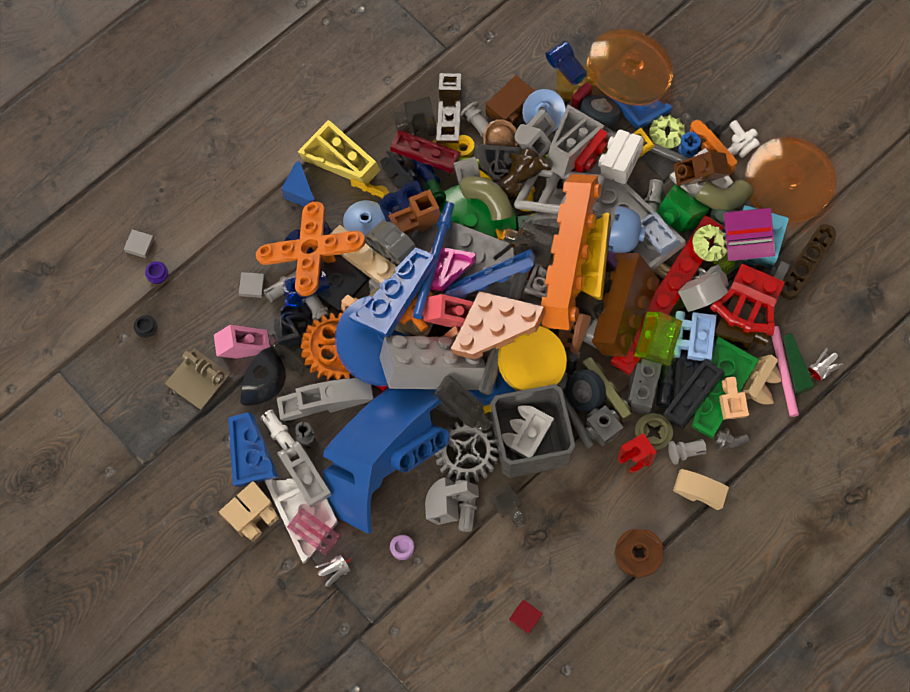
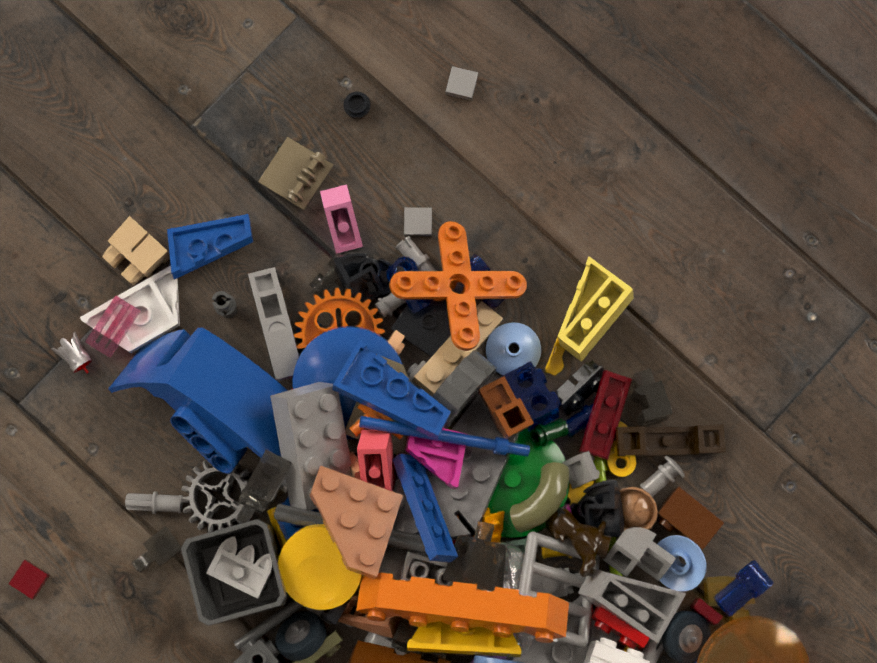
camera: 85 degrees right, 10 degrees up
(156, 272) = (425, 108): dark purple plate -> none
(262, 390) = (306, 263): black piece -> none
(278, 430) = (235, 274): white pin -> none
(296, 187) = (548, 263): blue slope -> none
(304, 474) = (177, 308): light grey plate -> none
(402, 547) = (105, 430): lavender tile -> none
(443, 499) = (156, 473): light grey brick -> none

